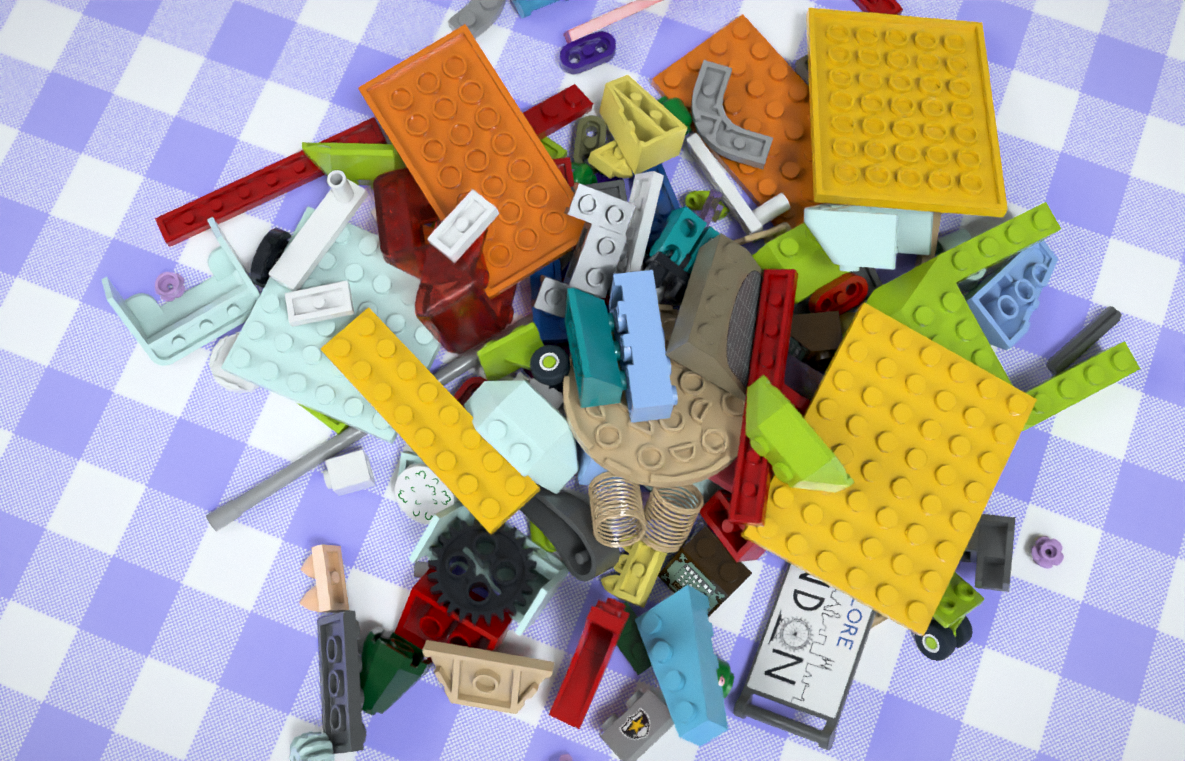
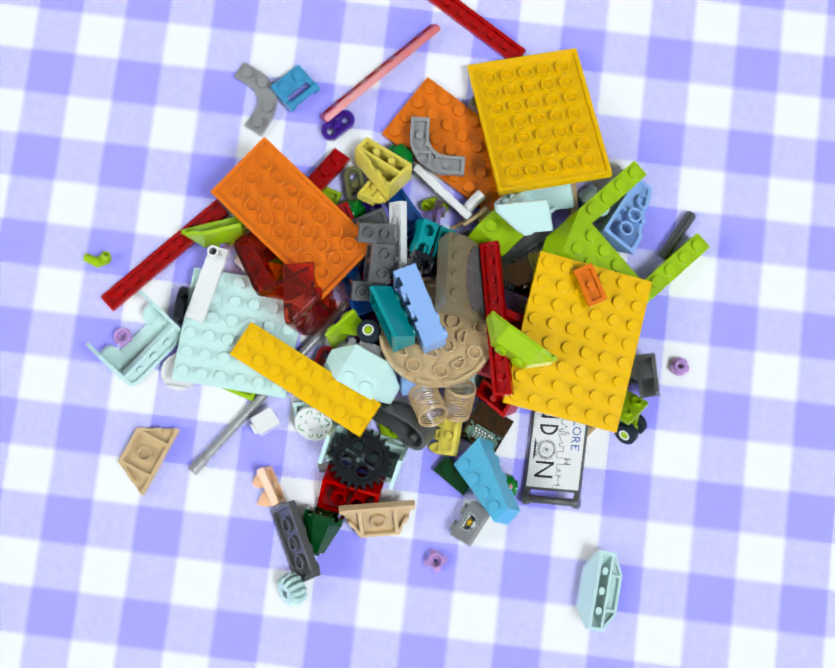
camera: 15 degrees left, 5 degrees up
(148, 478) = (146, 454): none -> tan wing
(173, 166) = (99, 261): none -> lime arm
(319, 303) = (221, 326): white plate -> none
(463, 226) = (301, 265): white plate -> none
(589, 662) = (434, 495): red arch -> none
(836, 296) = (526, 246): red plate -> none
(934, 376) = (590, 285): none -> orange plate

